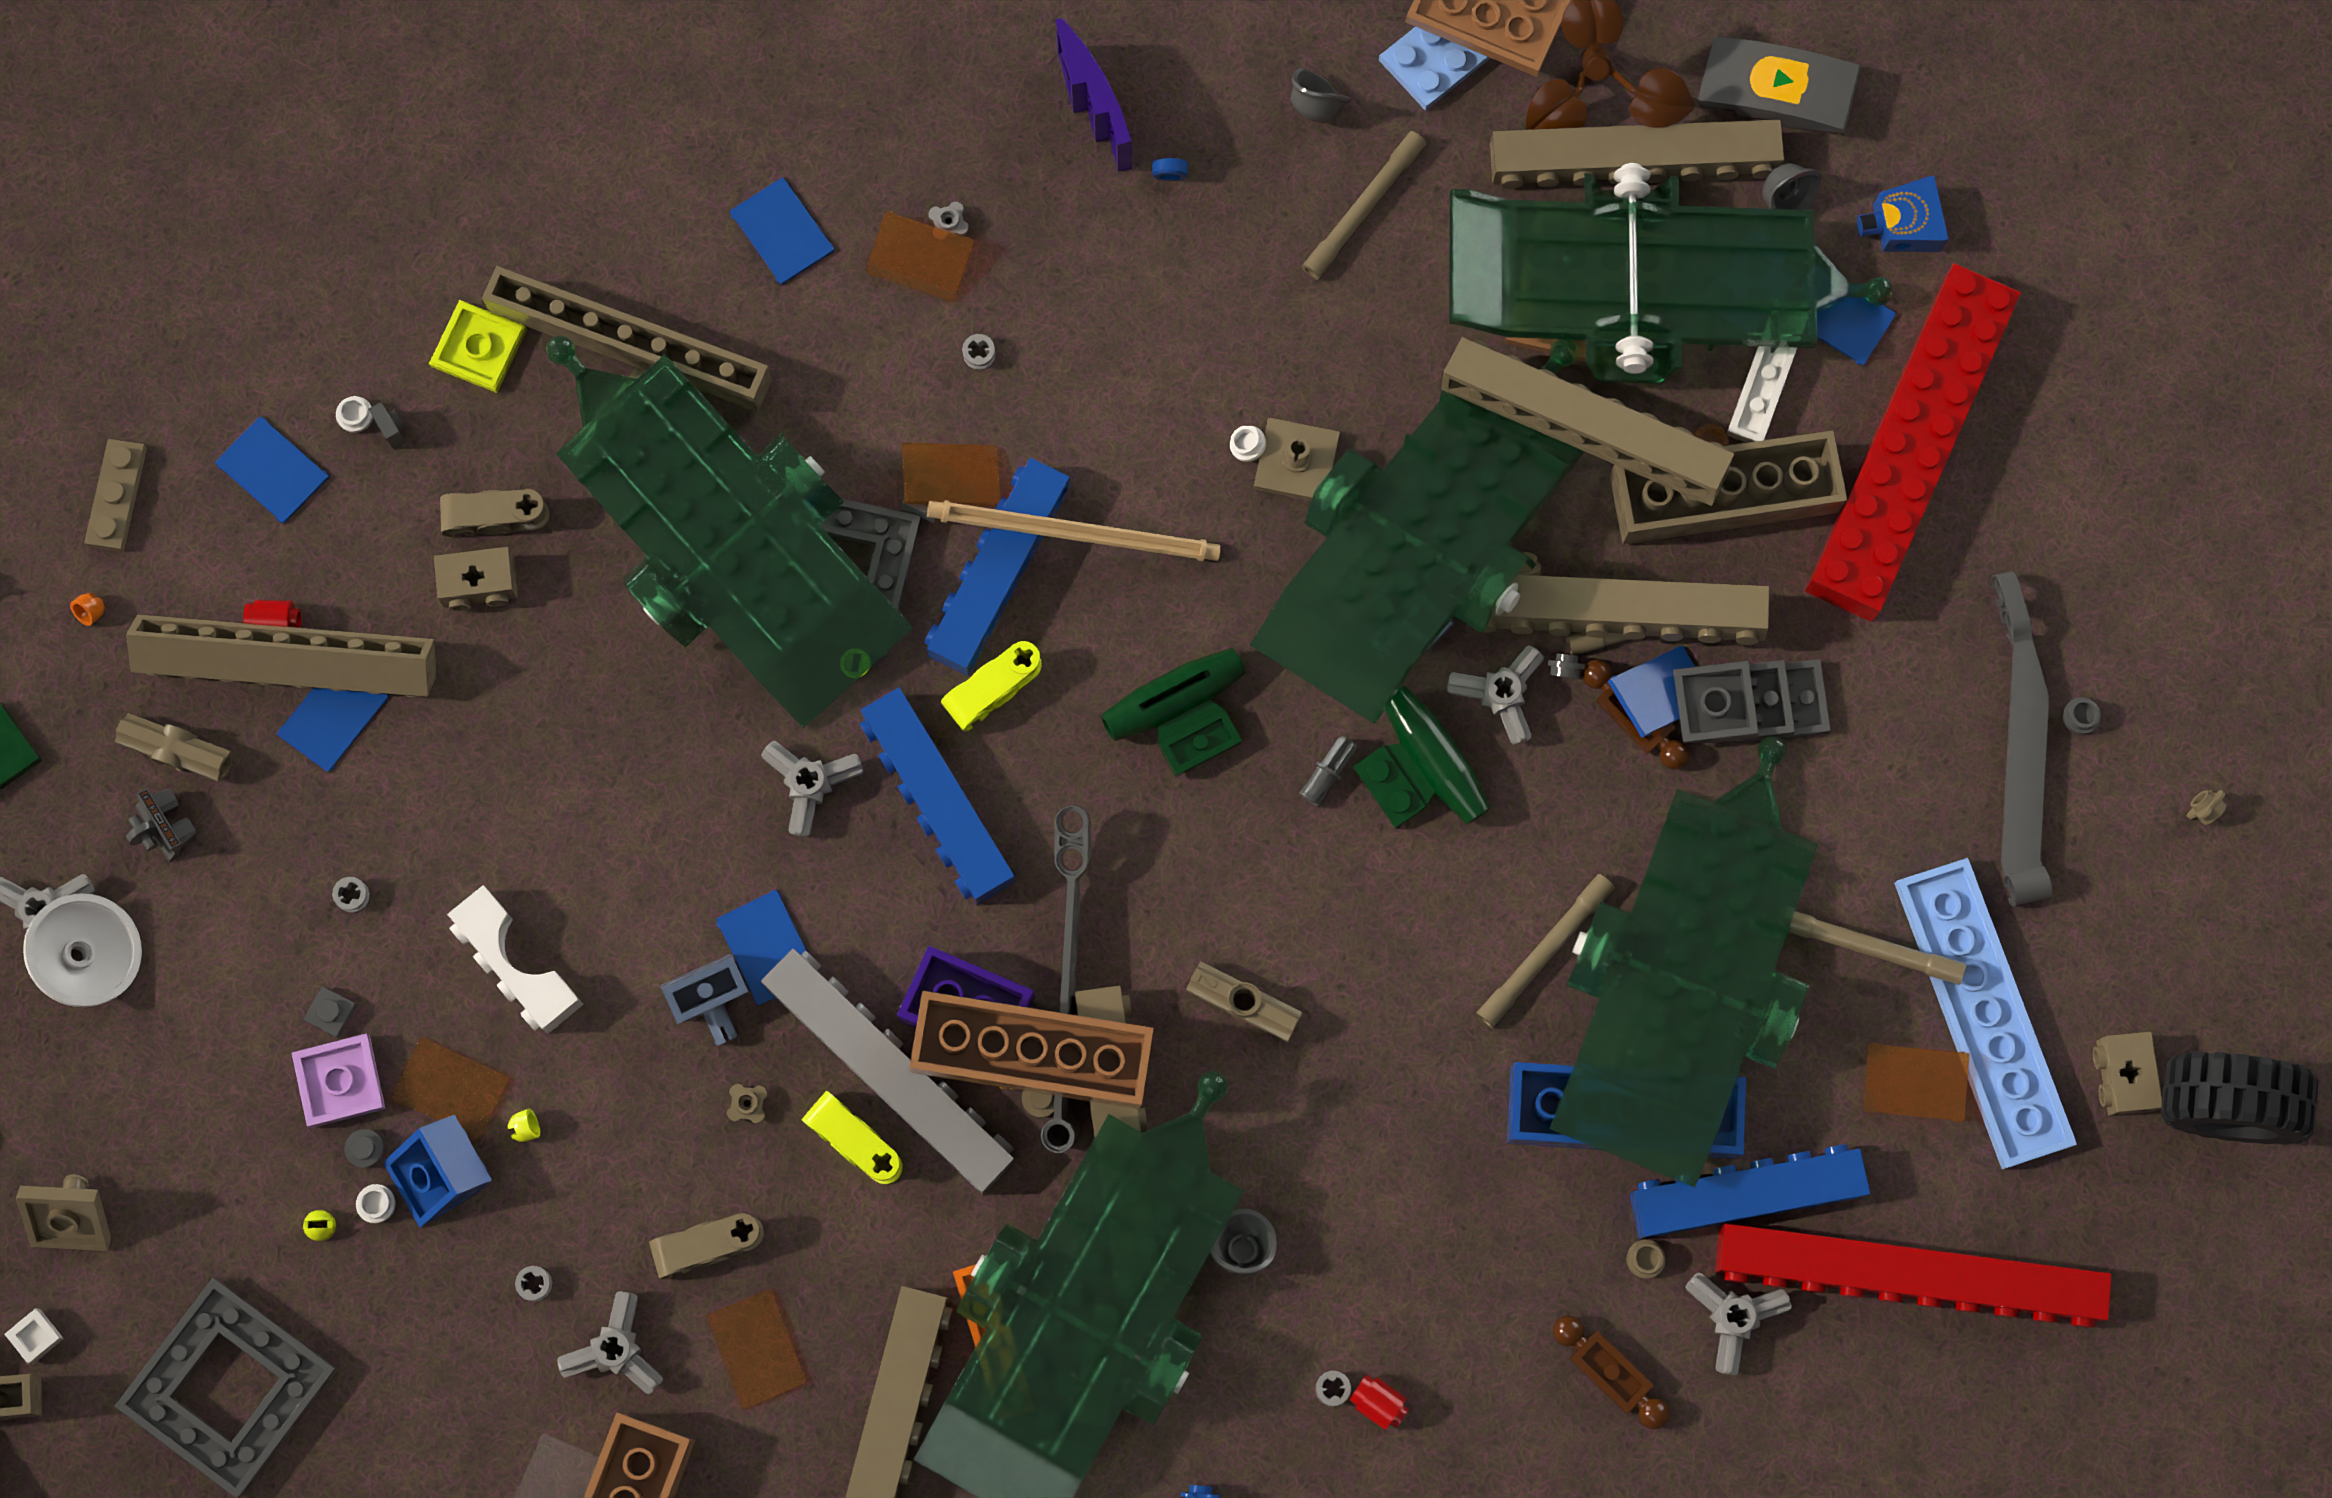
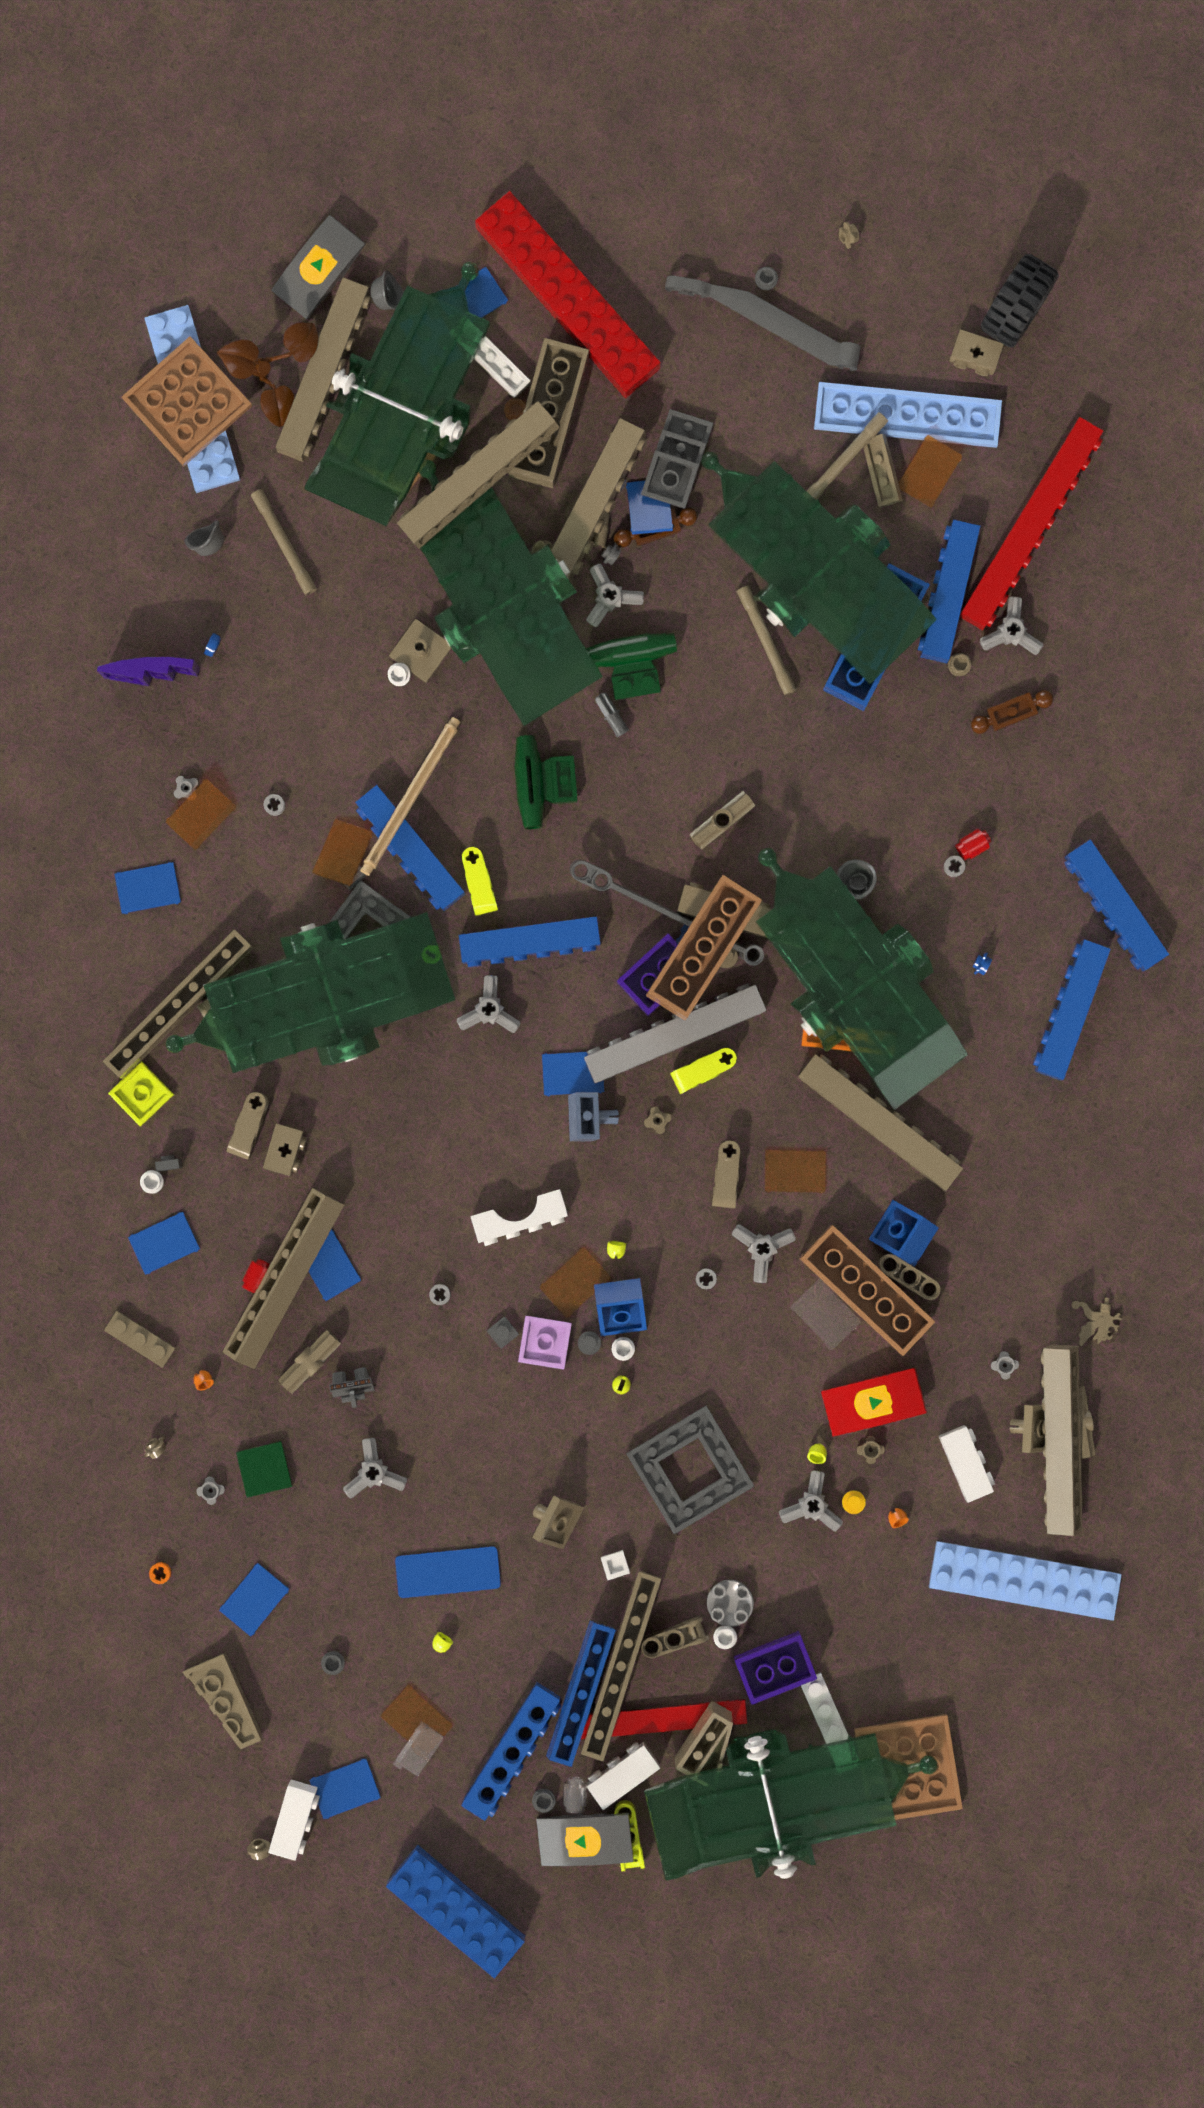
camera: 60 degrees left, 10 degrees up
(99, 932) = (409, 1443): white dish -> none
(1881, 1011) = (882, 471): none -> dark tan plate
(1907, 218) = (433, 232): blue torso -> none

